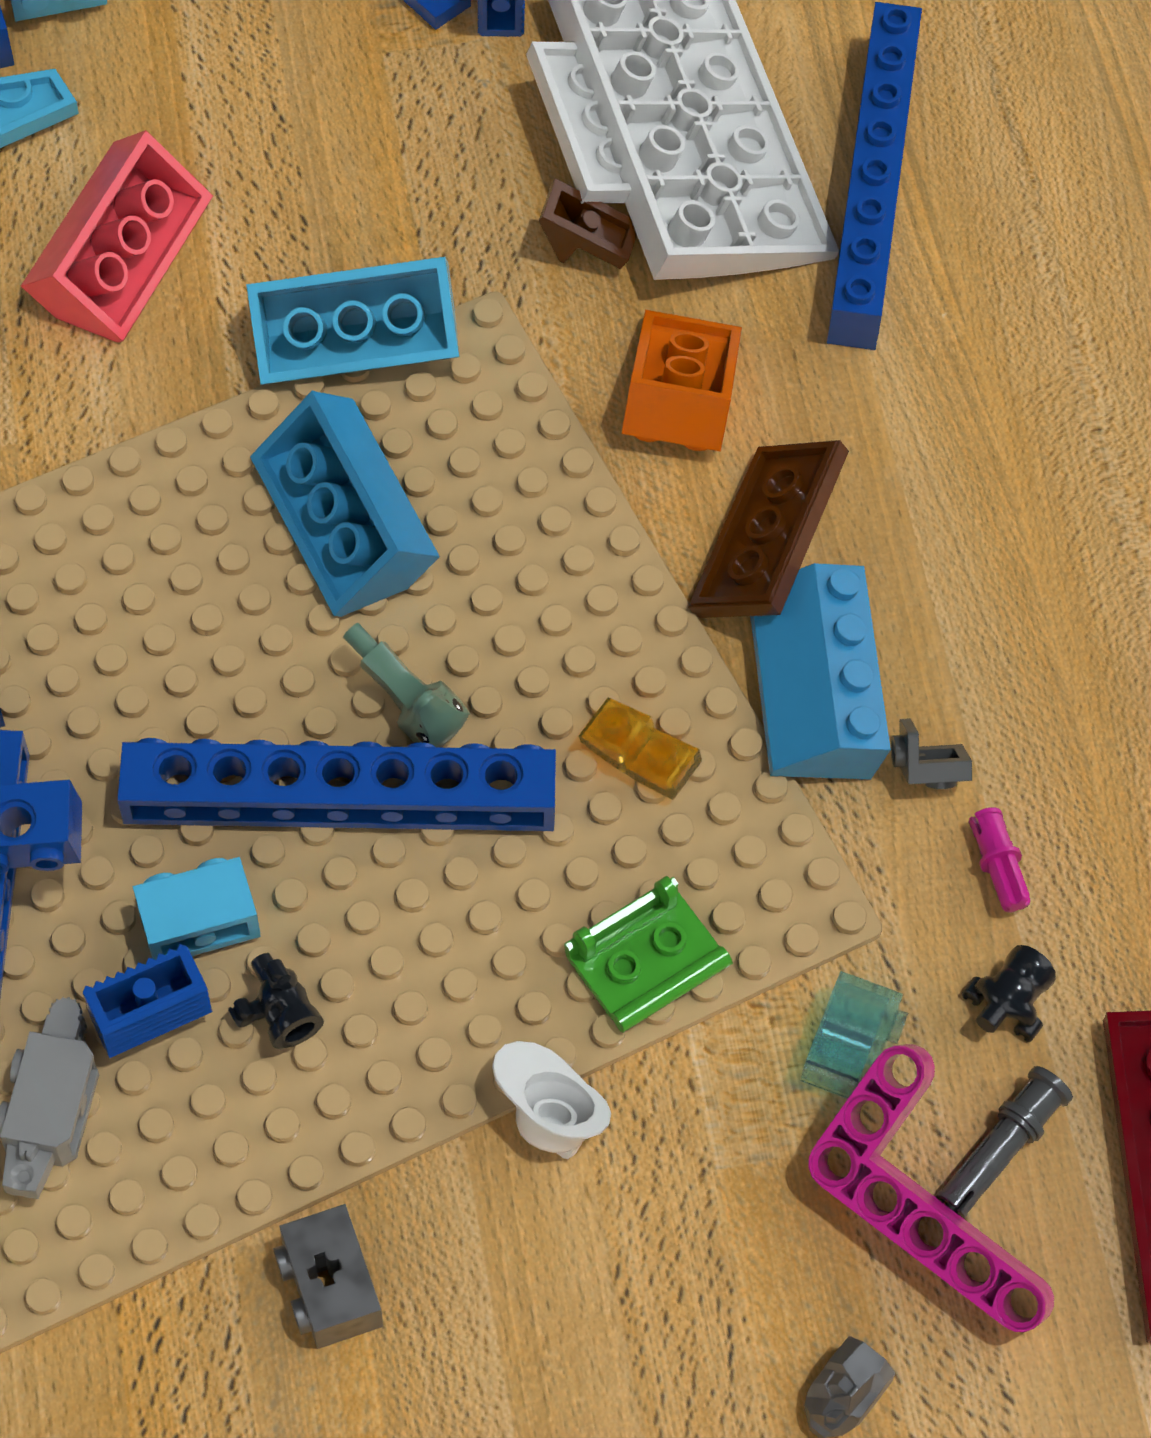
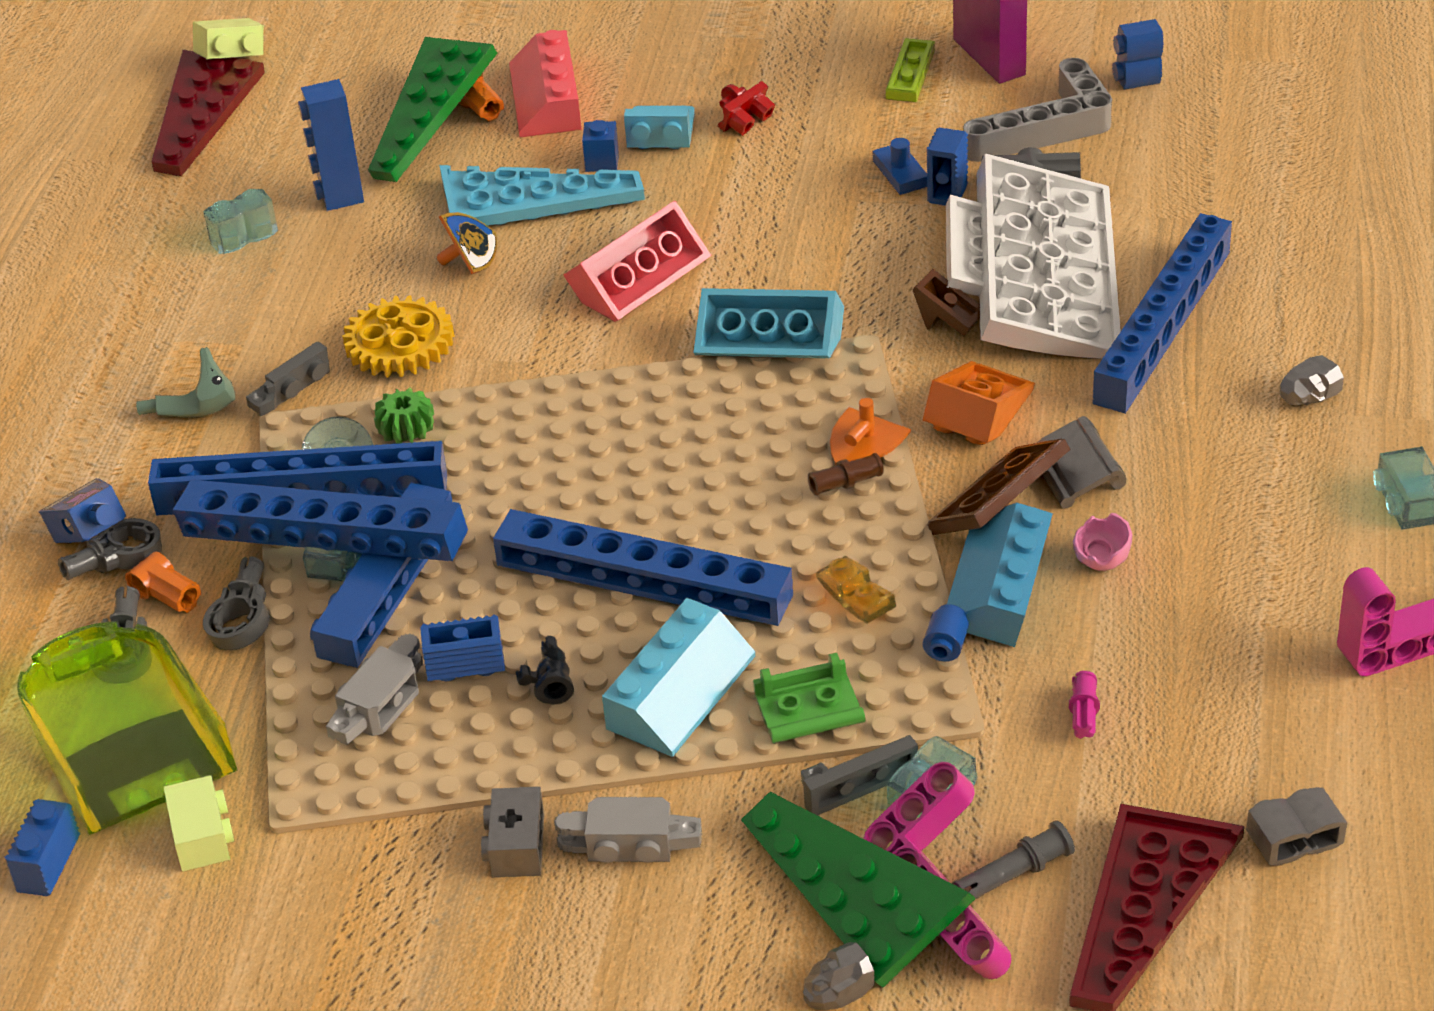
camera: 25 degrees right, 20 degrees down
(197, 908) = (524, 610): medium azure brick -> none
(343, 504) = (716, 419): dark azure slope -> none
(427, 711) = (717, 531): sand green animal -> none
(462, 967) = (677, 678): none -> slope
(484, 1231) = (627, 830): none -> light grey hinge
(551, 480) = (862, 434): none -> orange shield
(551, 1100) = (704, 766): white piece -> none
(556, 556) = (845, 474): none -> reddish brown pin
(721, 1086) = (854, 778): none -> dark grey hinge
(791, 797) = (946, 633): none -> blue brick
(827, 1246) = (856, 885): none -> green wing
(874, 460) = (1083, 466): none -> flat silver piece
(929, 765) = (1062, 644): dark grey bracket -> none
(935, 587) = (1103, 542): none -> bright pink hair
(1013, 991) = (1059, 778): black piece -> none
(1107, 253) = (1312, 381): none -> flat silver rock

